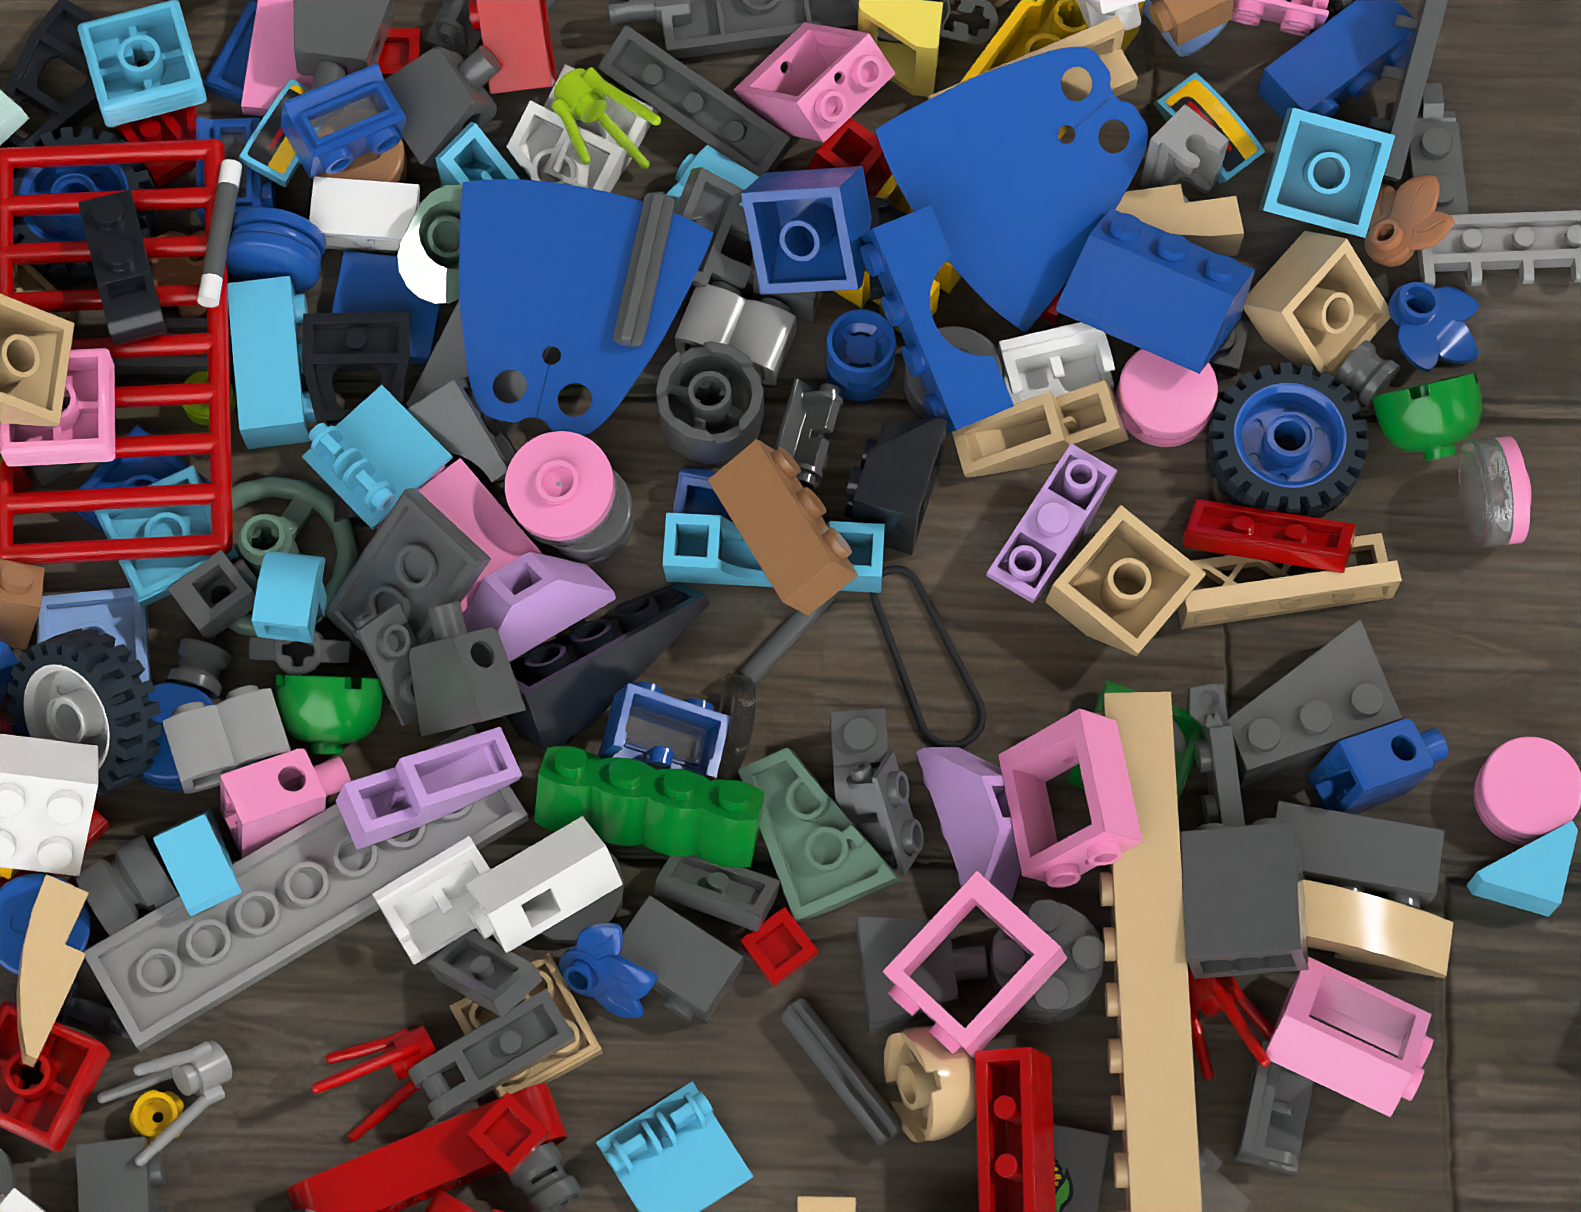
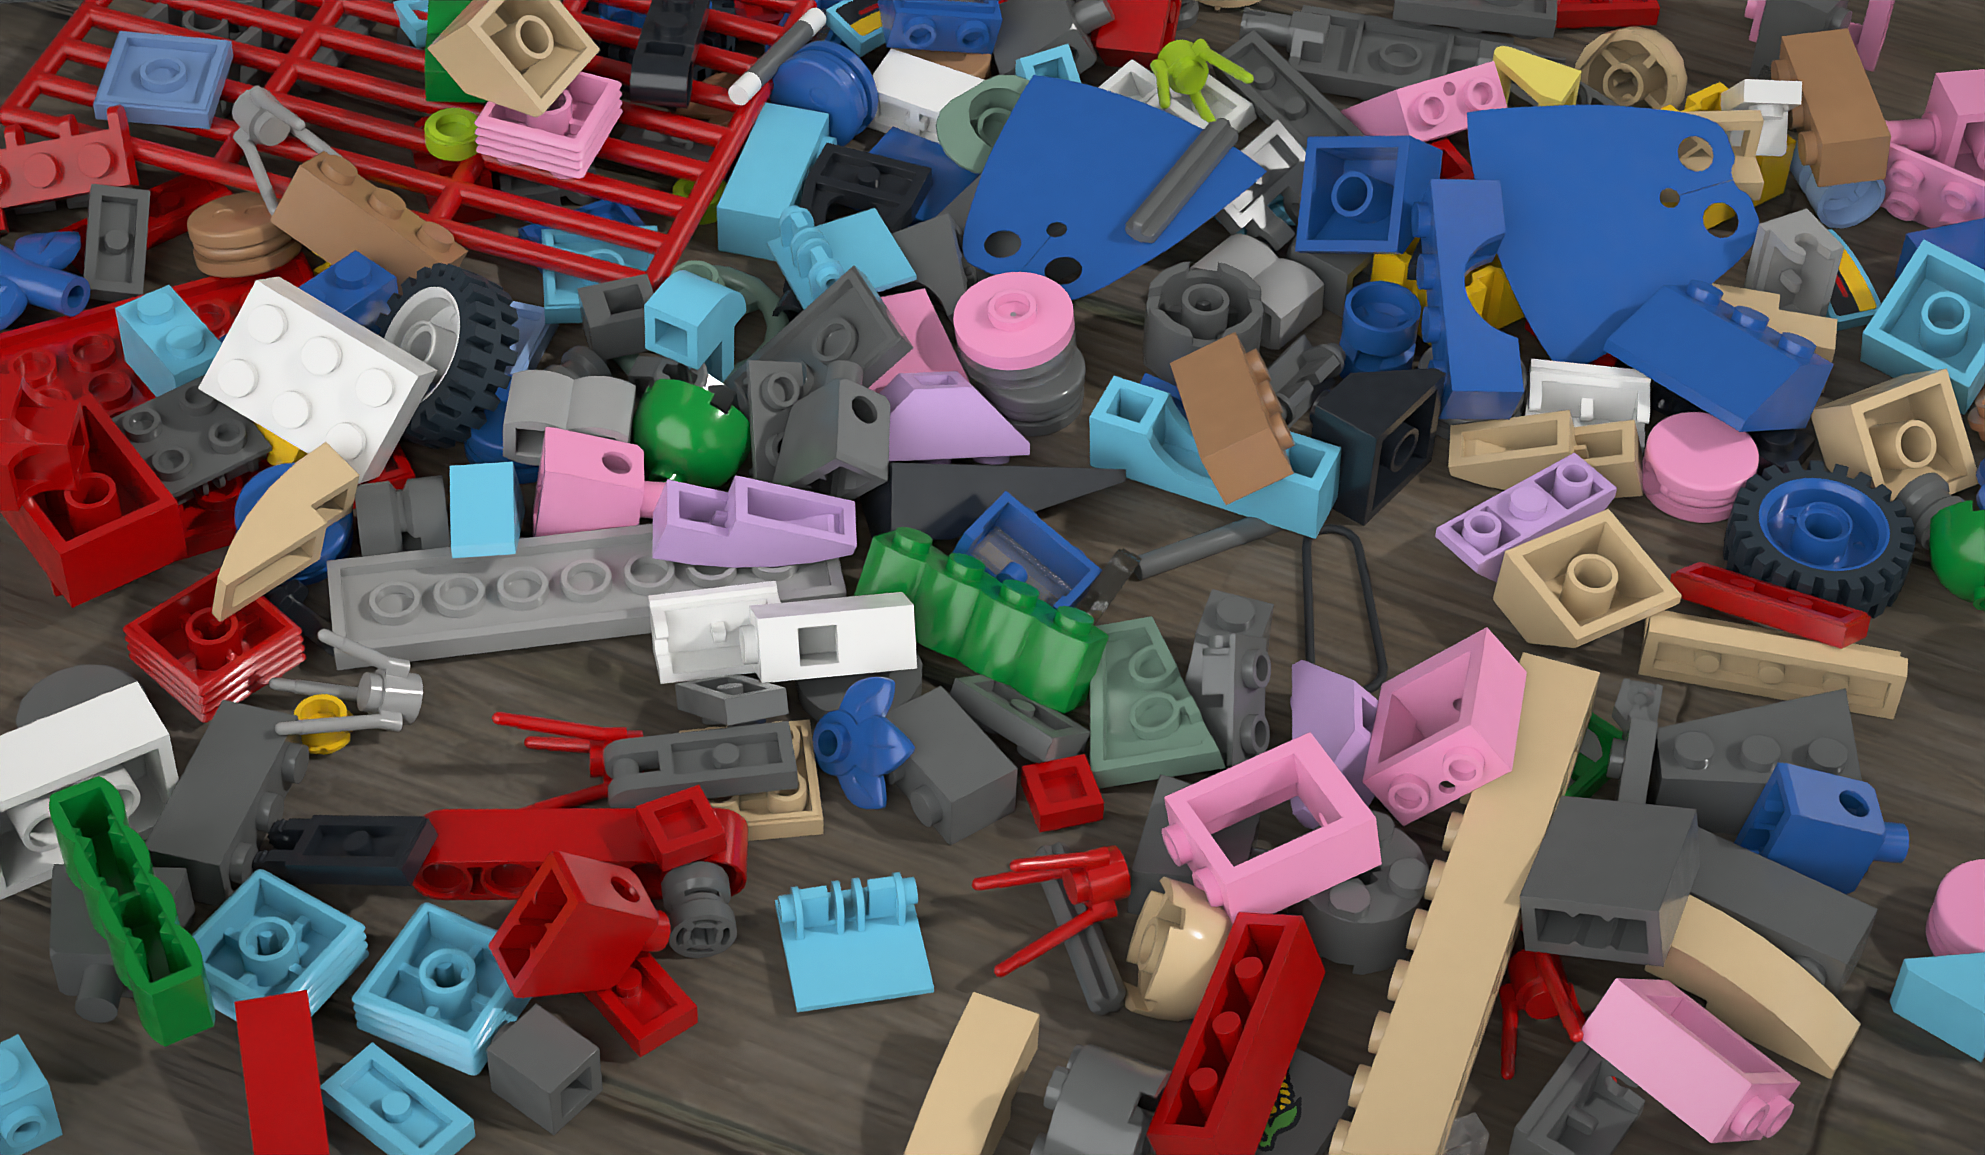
camera: 20 degrees right, 25 degrees down
(841, 1041) = (1088, 877): none -> red plant

